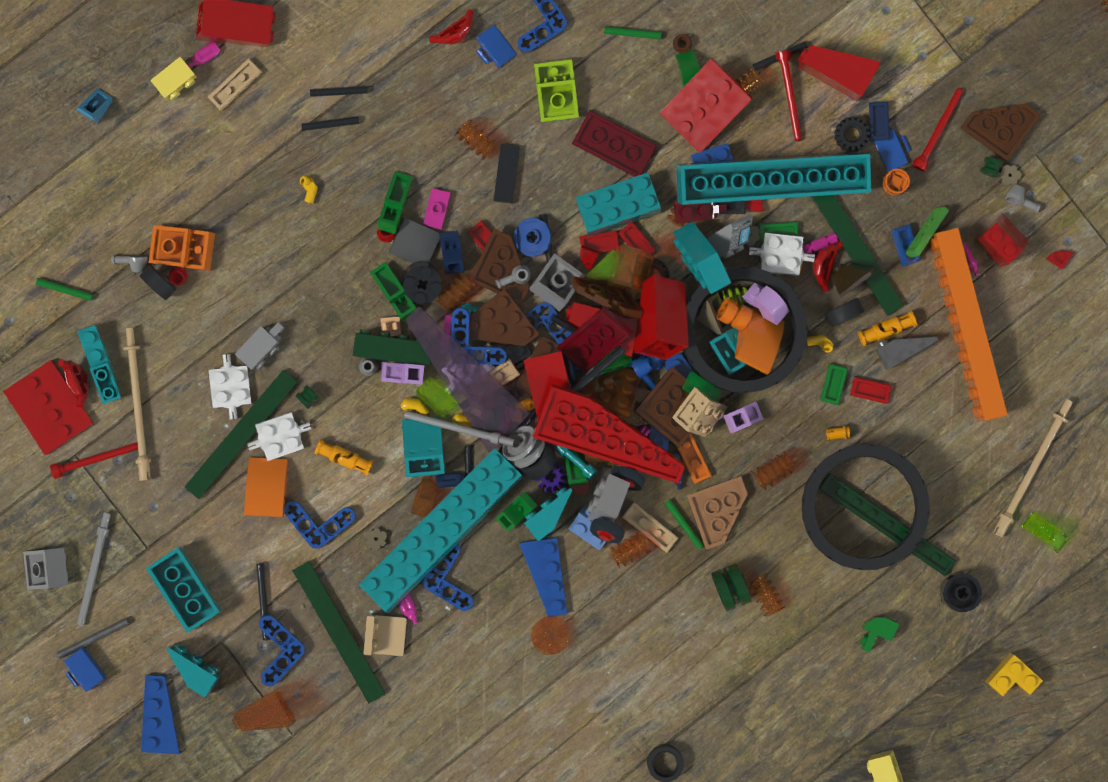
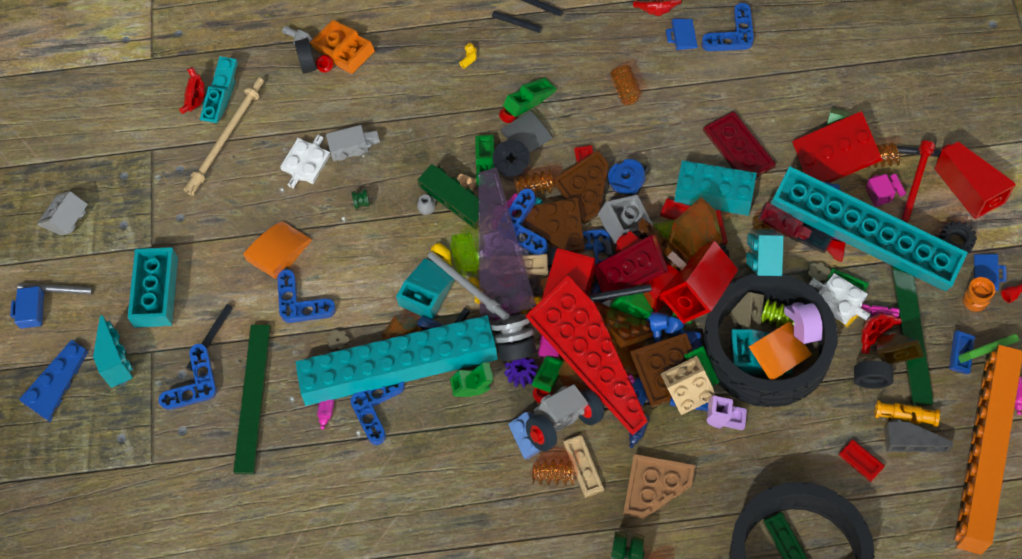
camera: 35 degrees right, 25 degrees down
(48, 407) = (157, 104): red plate -> none
(59, 469) = (129, 149): red piece -> none
(64, 289) = (234, 31): green bar -> none
(102, 533) = (125, 213): light grey bar -> none
(240, 434) = (287, 200): dark green tile -> none
(264, 713) = (140, 421): clear orange slope -> none
(279, 436) = (316, 216): white plate -> none
(347, 458) = (357, 260): light orange piece -> none
(385, 635) = (286, 420): tan bracket -> none
(402, 373) = (450, 221): lavender brick -> none
(436, 209) = (561, 119): dark pink plate -> none
(451, 252) = (553, 151): dark blue brick -> none
(506, 173) = (634, 123): black tile -> none
(514, 276) = (597, 200): light grey bar -> none
(545, 520) = (499, 397): teal slope -> none
(545, 569) = (465, 450): blue wing -> none
(545, 625) = (420, 505): clear orange plate -> none
(556, 89) = (714, 82): lime slope -> none
(588, 256) = (664, 214): red tile -> none
(588, 470) = (557, 377): teal bar -> none
(632, 32) = (806, 77): green bar -> none
(682, 37) = (844, 98): reddish brown plate -> none
(684, 524) = (616, 481): green bar -> none
(694, 460) = (658, 429): orange tile -> none
(732, 237) = (804, 256): light grey slope -> none
(733, 313) = (768, 316): orange wheel -> none
(763, 120) = (882, 190): none -> dark pink brick
(773, 471) = (729, 477): clear orange piece -> none
(822, 341) = (836, 392): yellow arm -> none
(833, 384) = (828, 436): green tile -> none
(838, 433) = (808, 478): light orange pin -> none
(879, 121) = (987, 242): dark blue tile -> none

